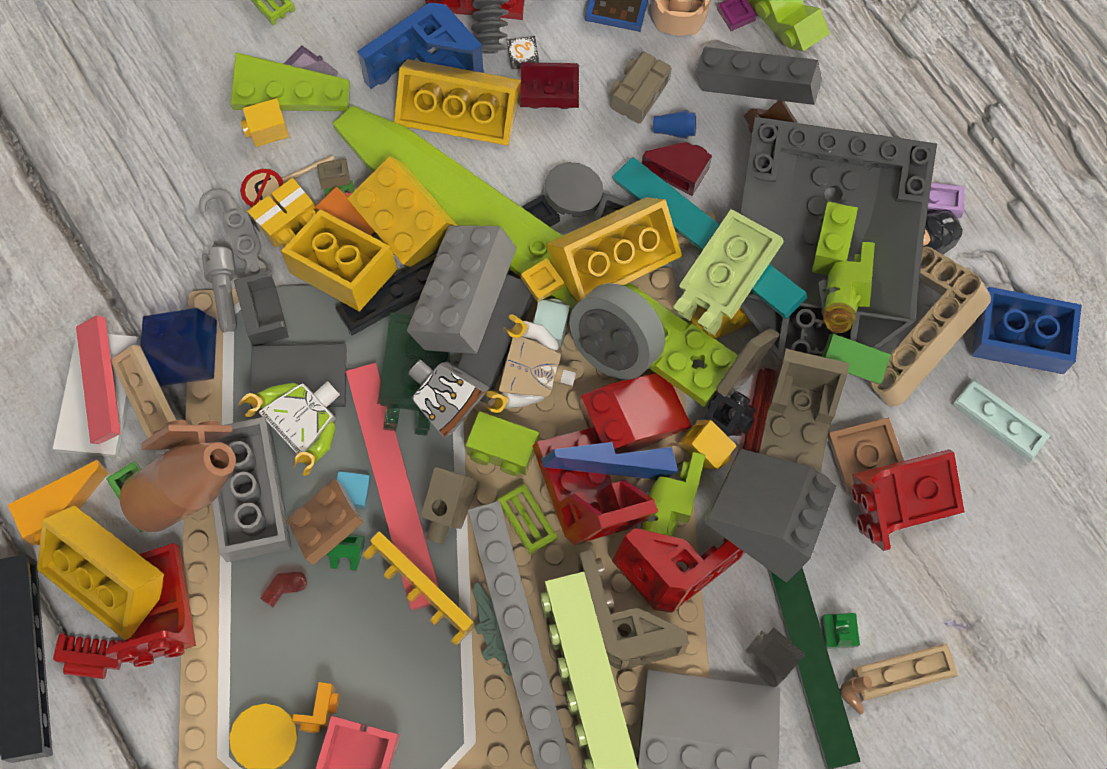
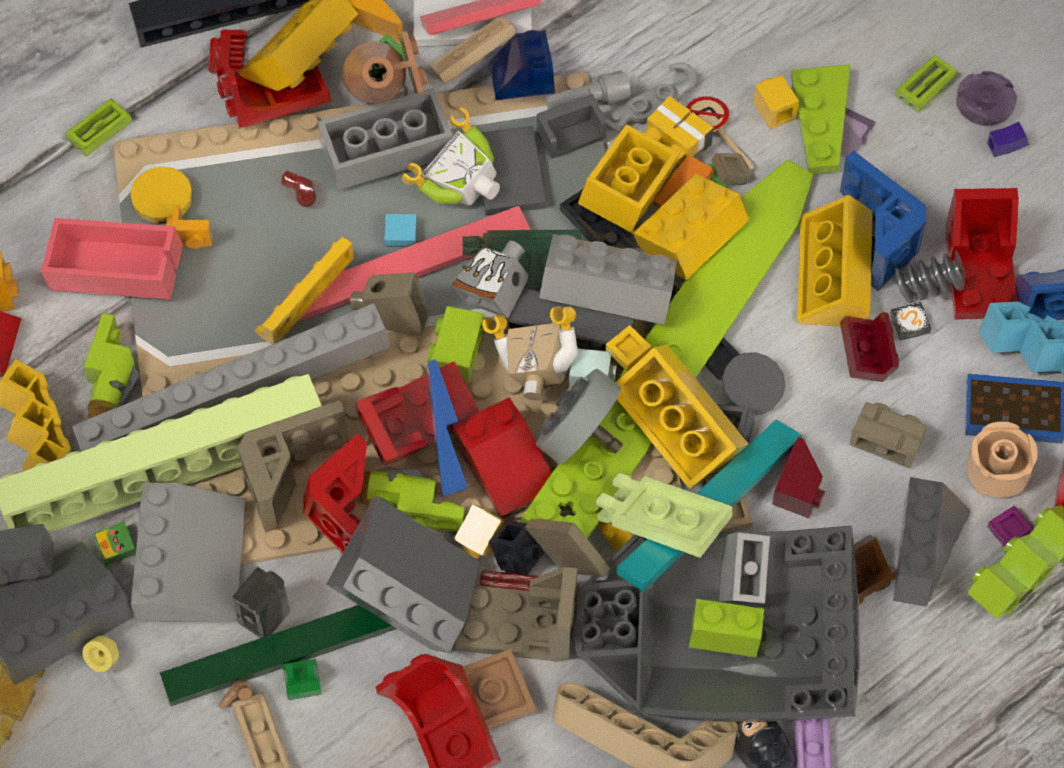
camera: 85 degrees right, 10 degrees down
(324, 521) = (360, 202): medium nougat plate -> none
(350, 548) = (339, 225): green tile -> none
(540, 542) = (413, 373): lime tile -> none
(677, 124) = (851, 477): blue cone -> none
(785, 212) = (744, 569): none -> light grey brick
(846, 289) = (666, 635): lime plate -> none
(863, 360) = (586, 653): bright green tile -> none

